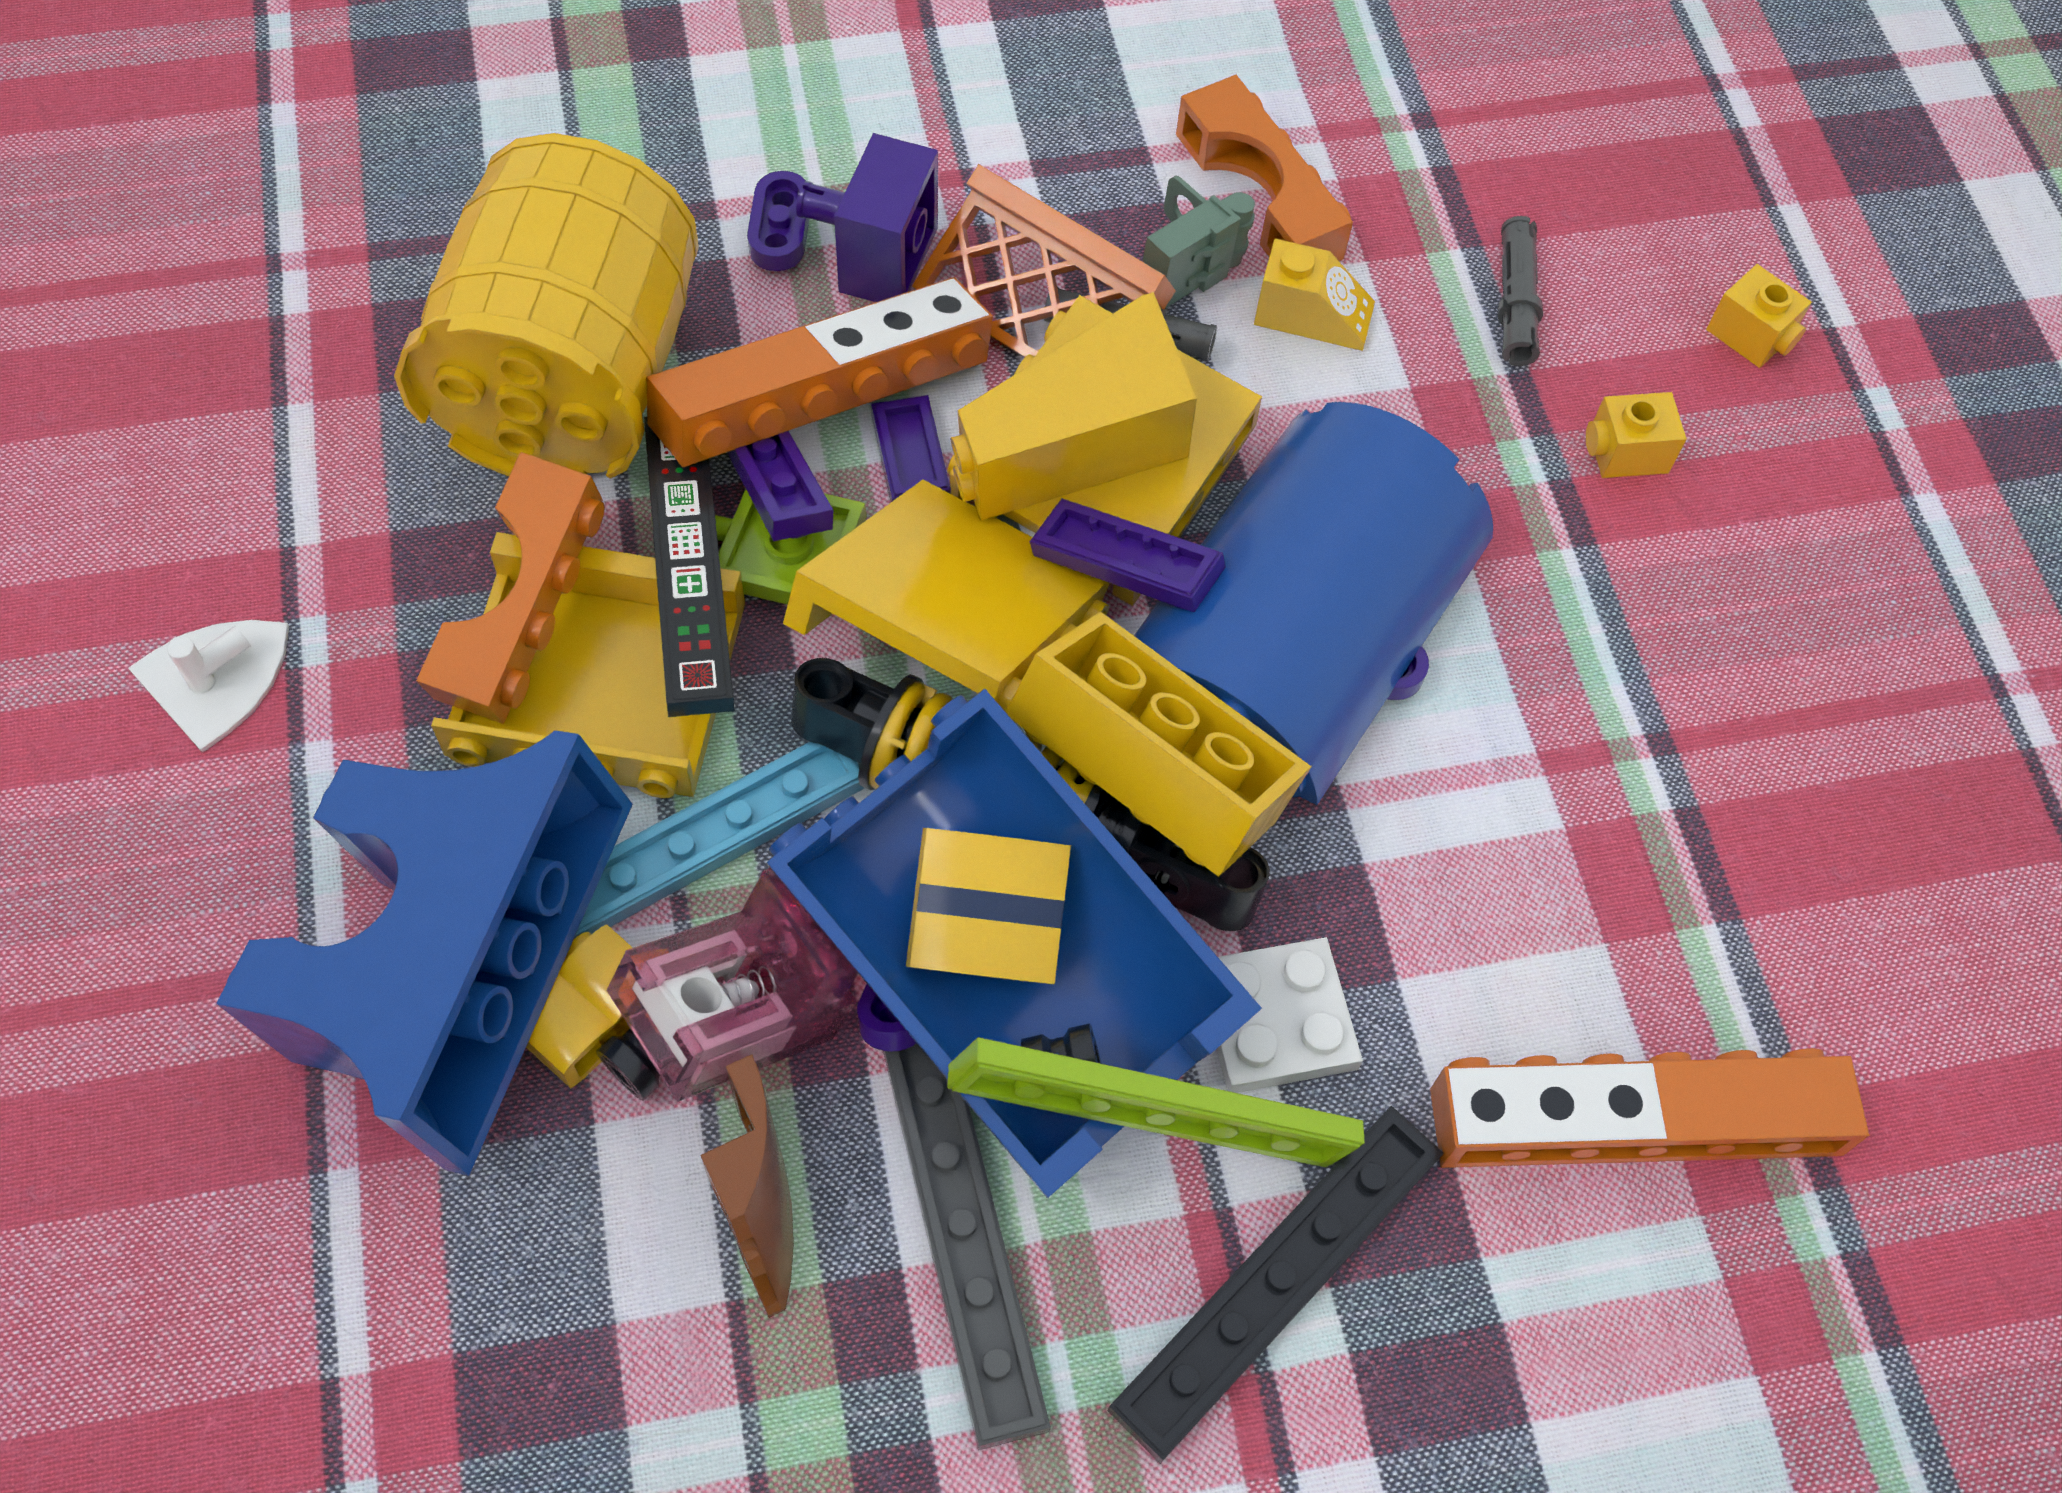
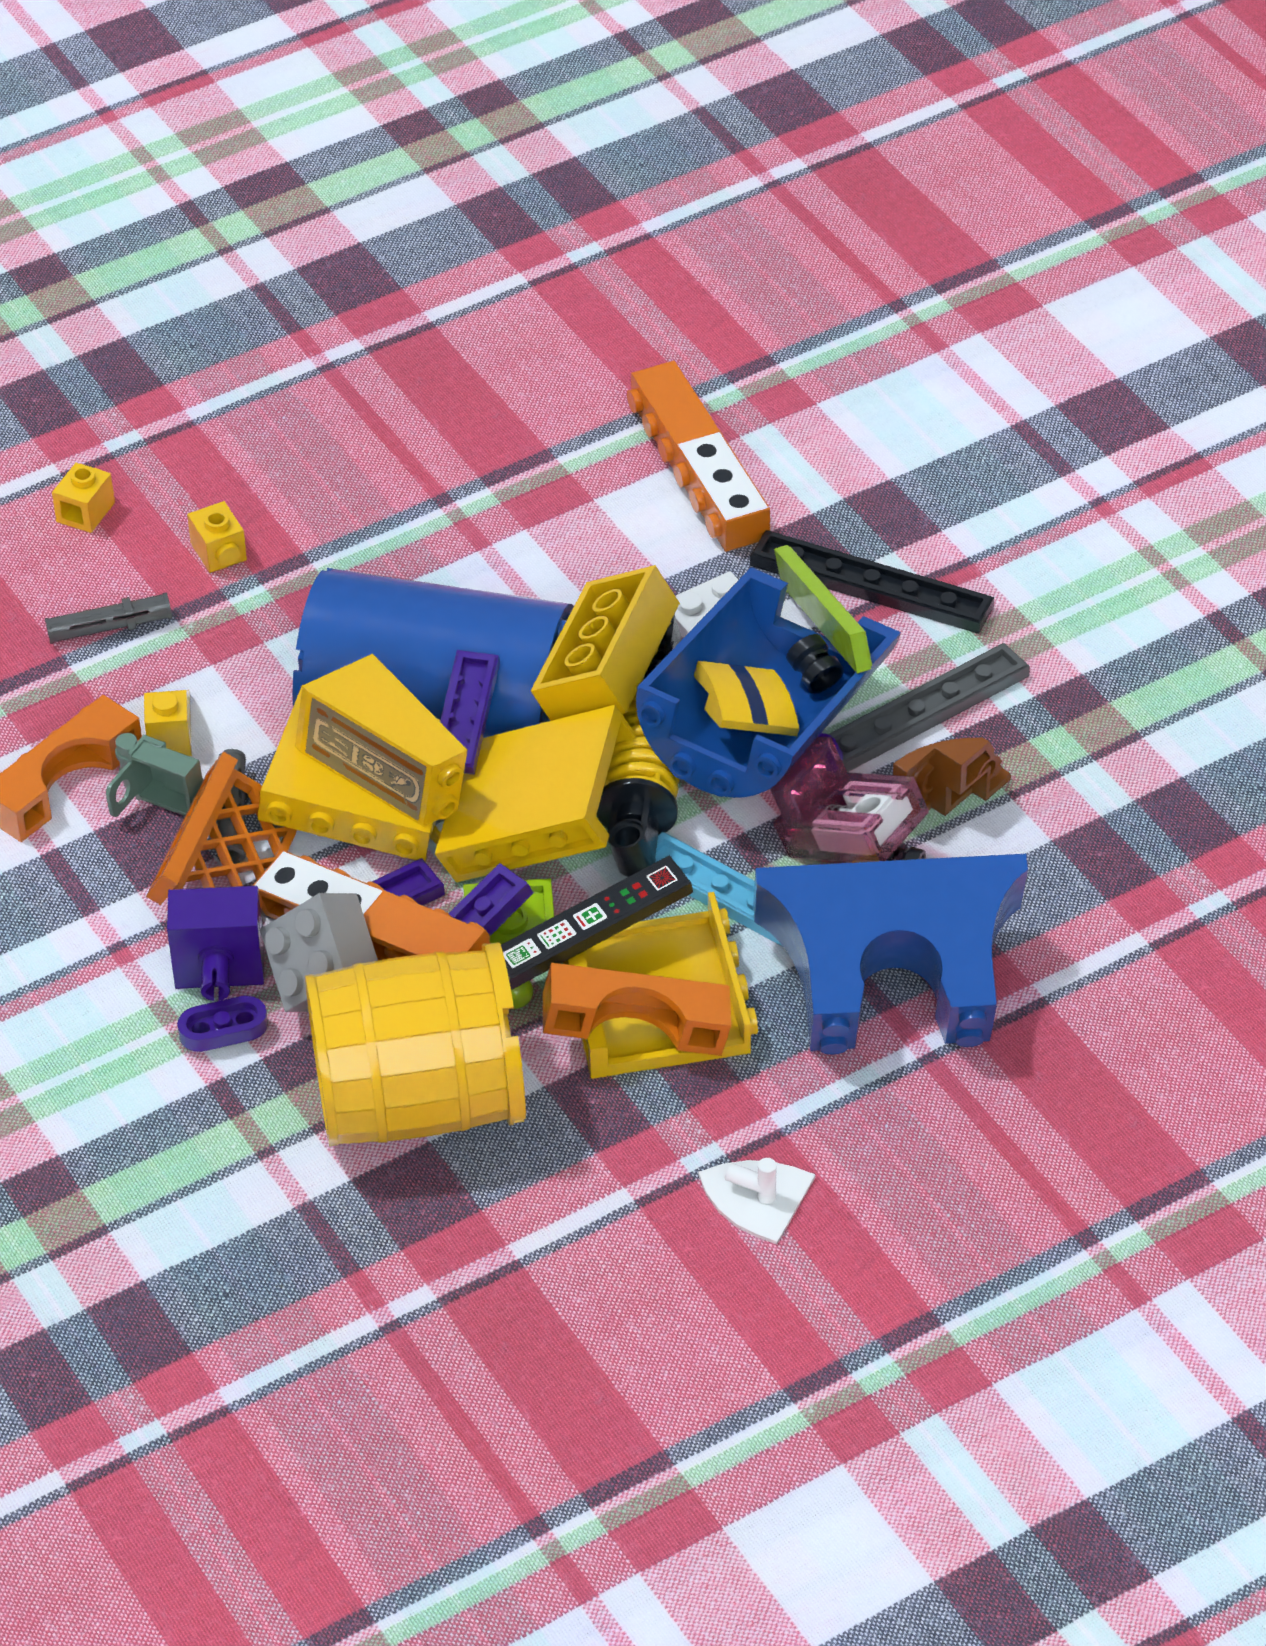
camera: 105 degrees left, 15 degrees down
(782, 284) = (315, 939): none -> light grey brick

